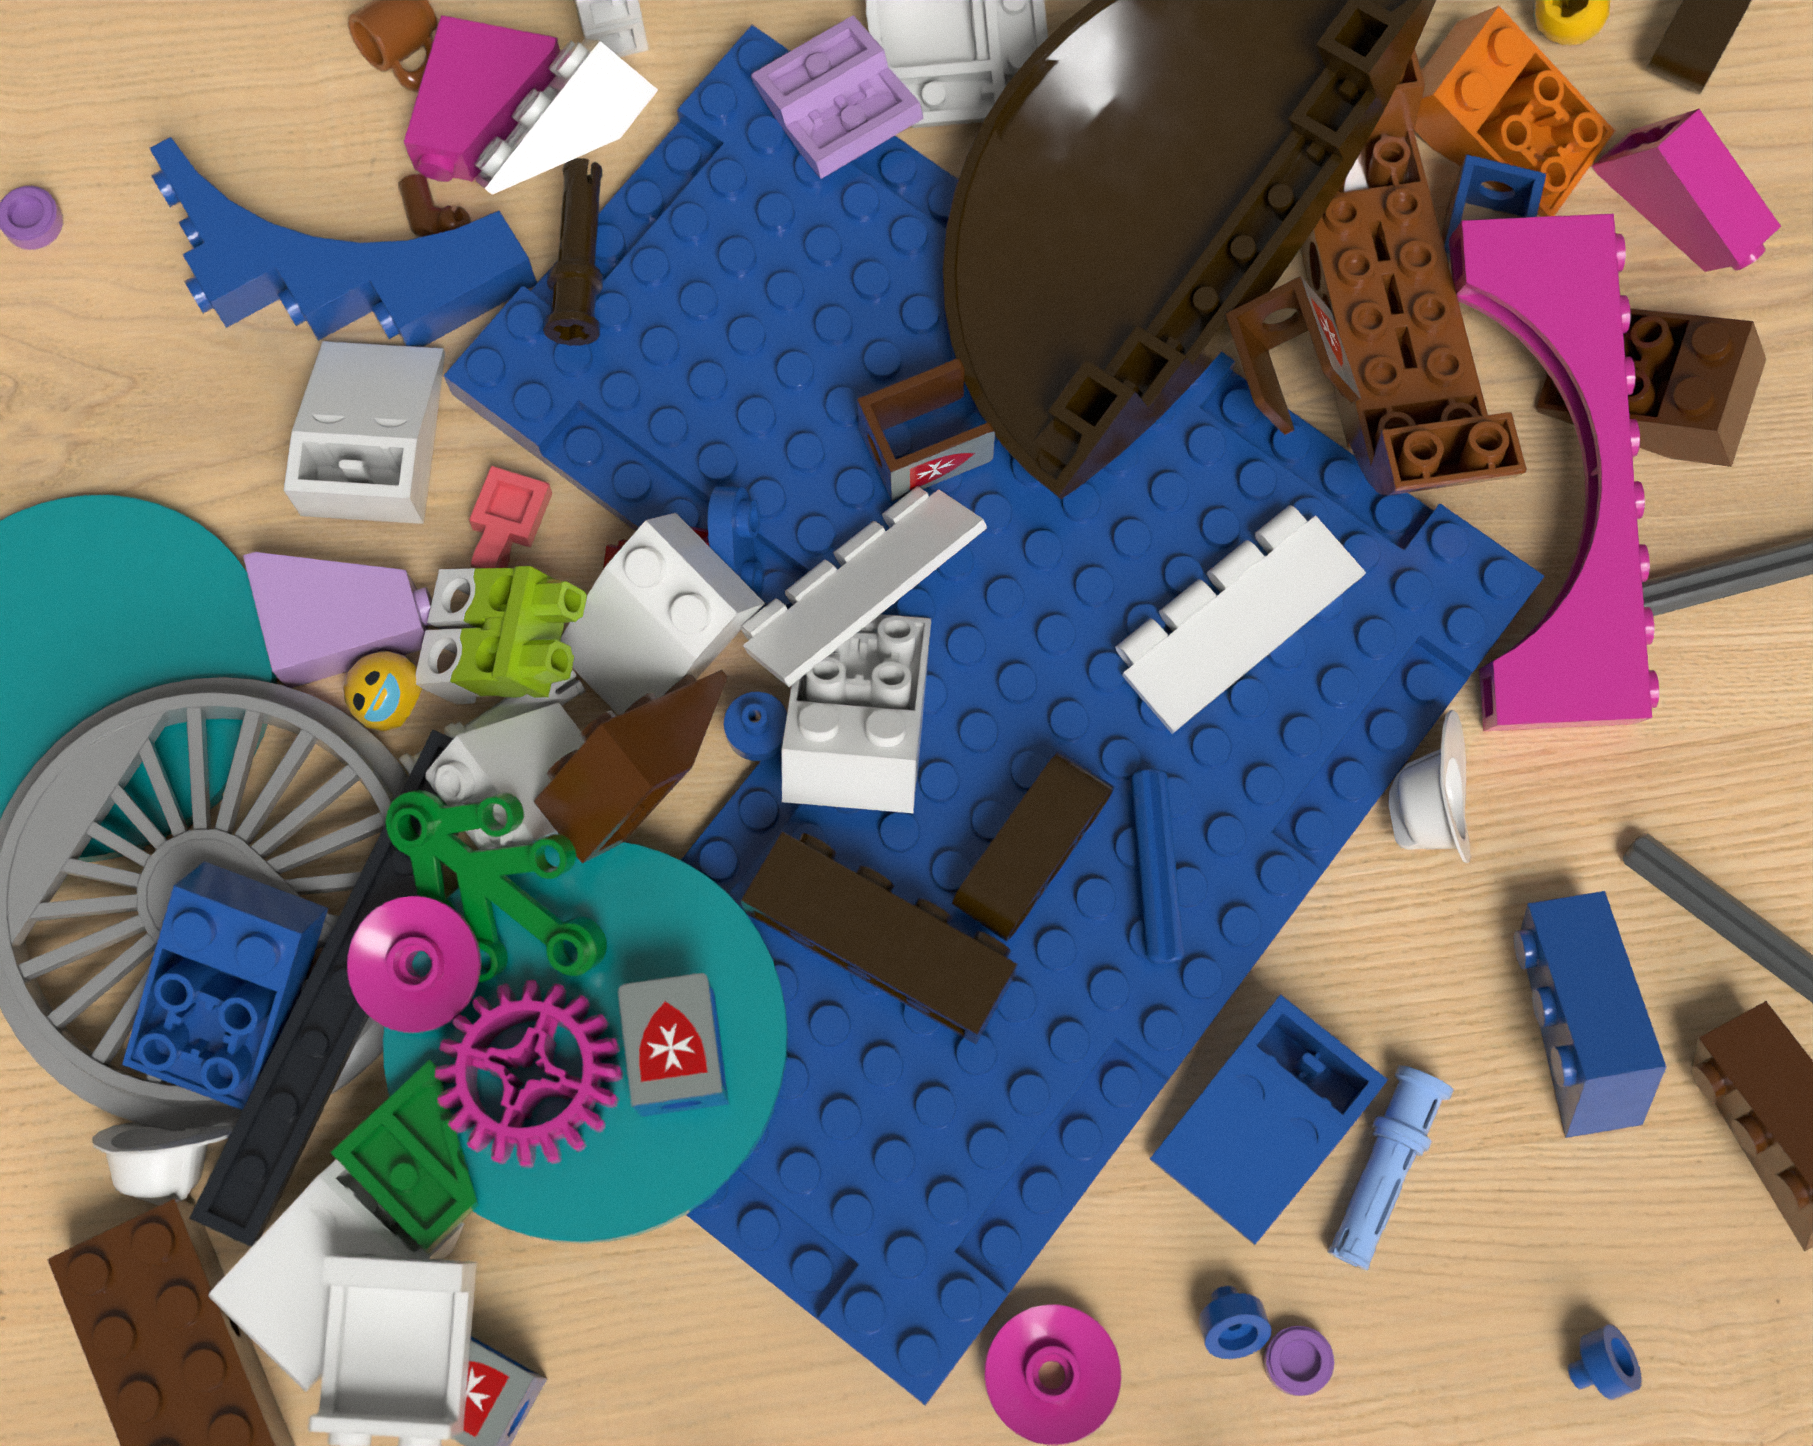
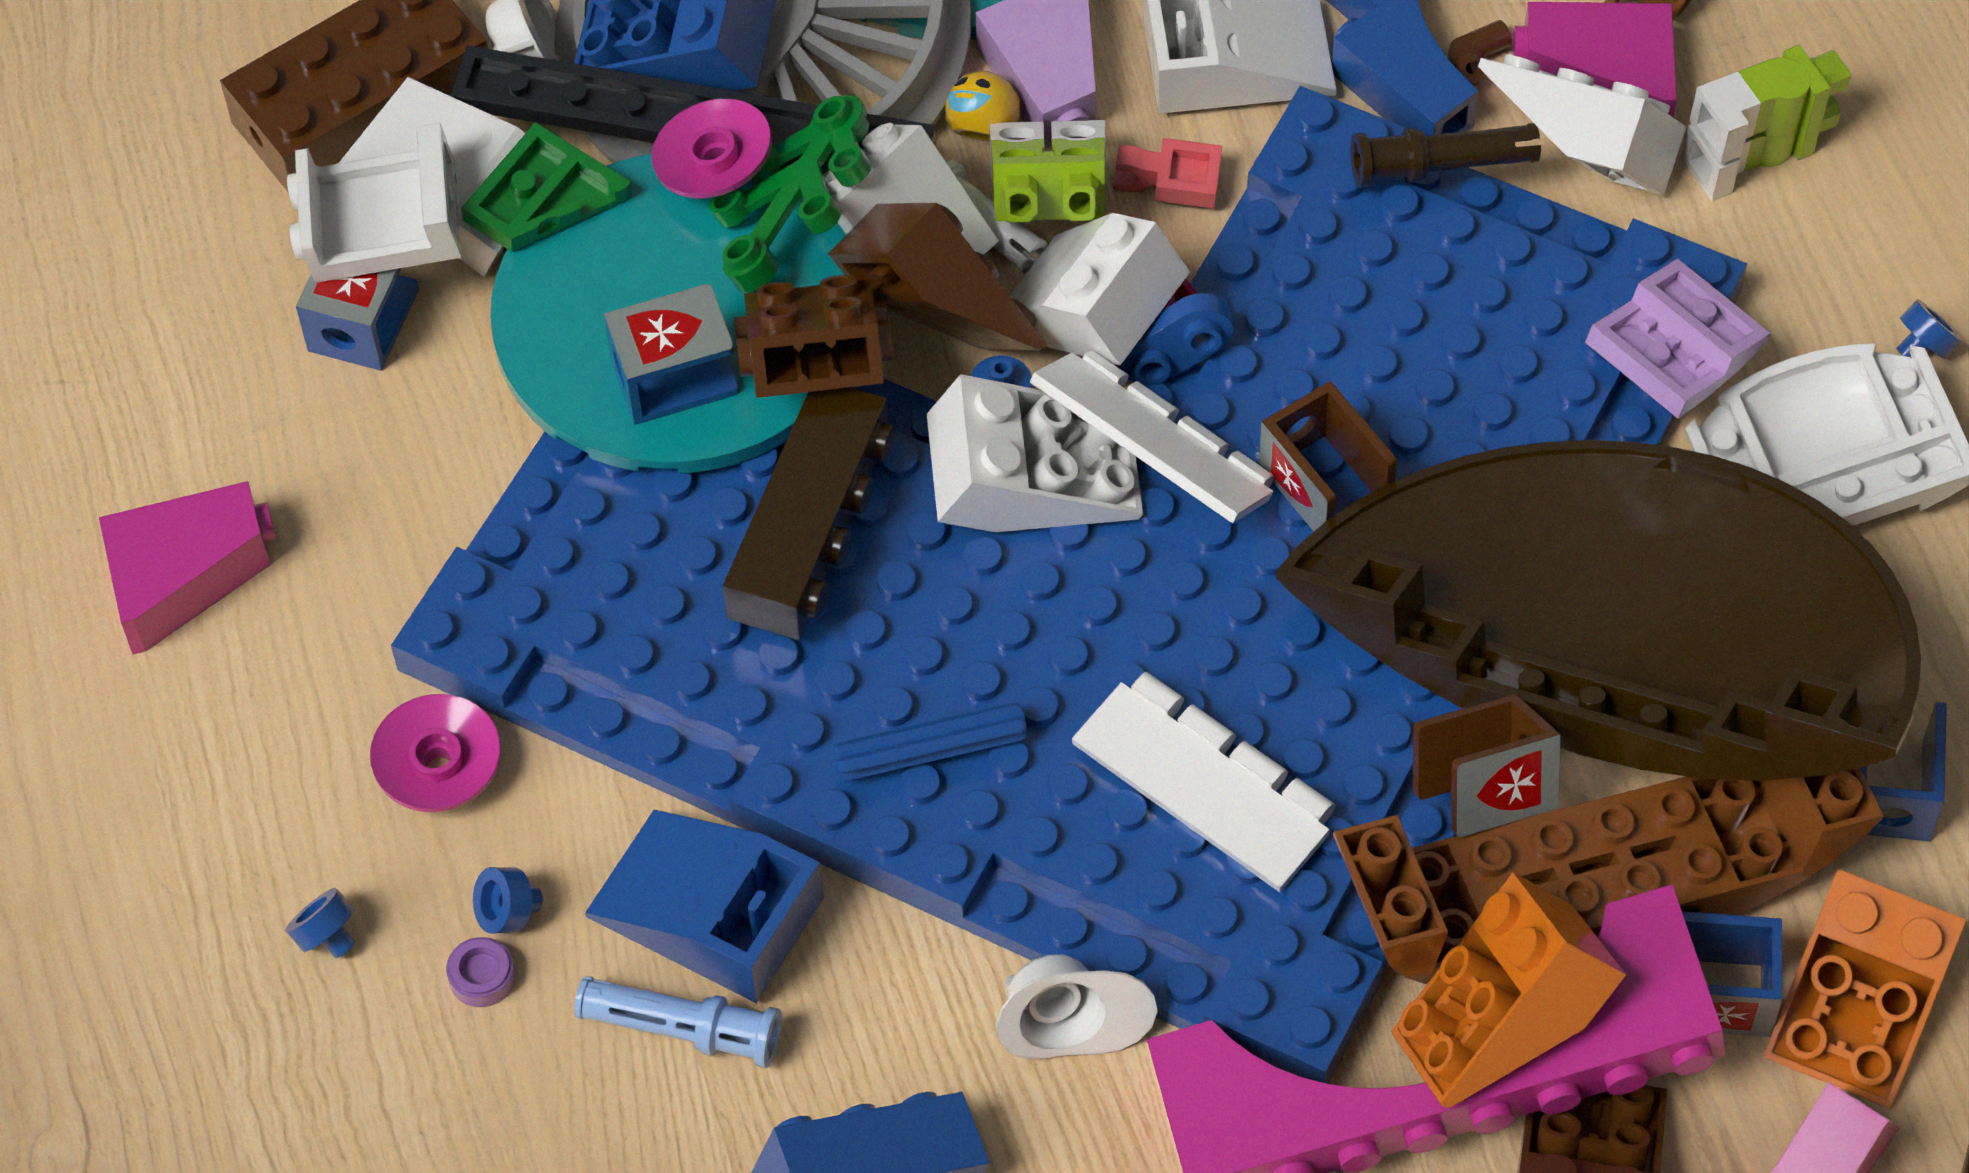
camera: 80 degrees right, 15 degrees down
(537, 1042) = (602, 236): dark pink gear -> none
(699, 891) = (813, 336): none -> reddish brown brick
(1033, 845) = (927, 627): dark brown beam -> none
(1556, 373) = (1506, 992): none -> orange slope

